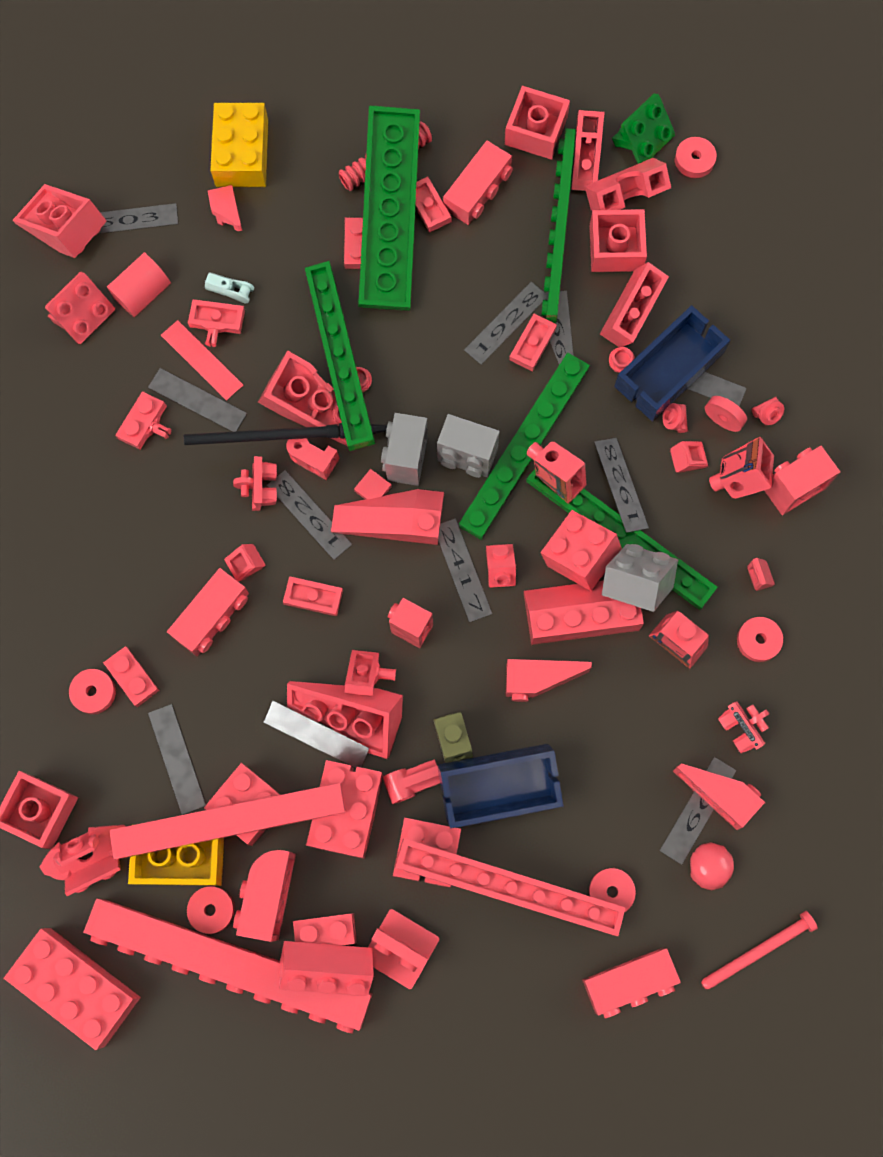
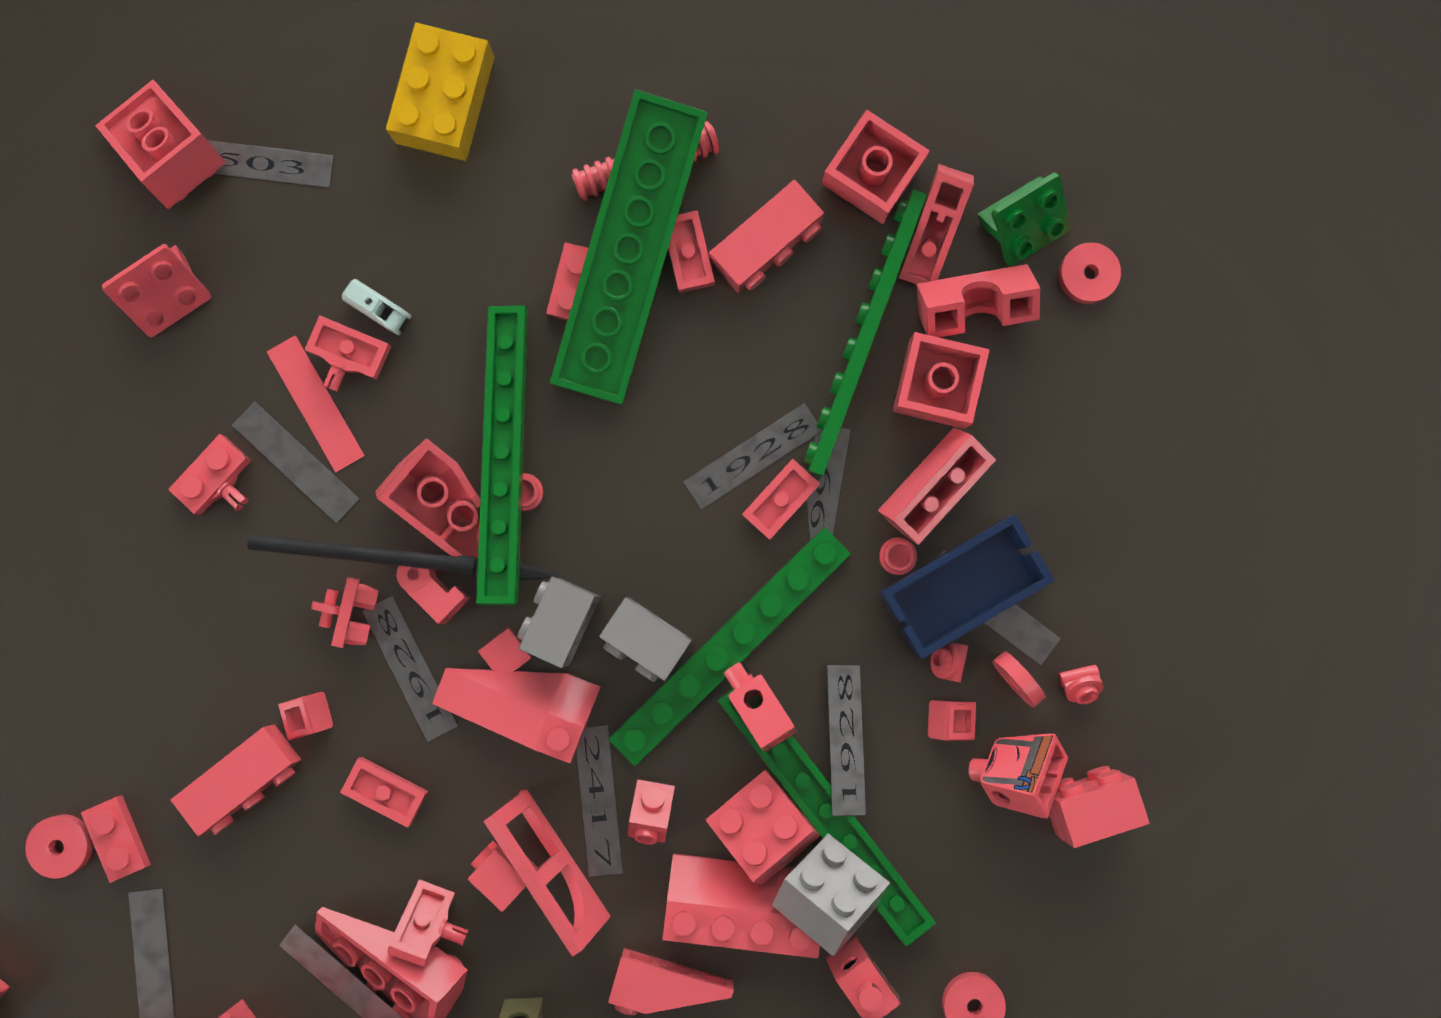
camera: 10 degrees right, 10 degrees up
(138, 285) = (249, 272): coral brick -> none
(224, 206) = (398, 180): coral slope -> none
(441, 611) = (588, 908): none -> coral window
(760, 574) = (1001, 916): coral slope -> none

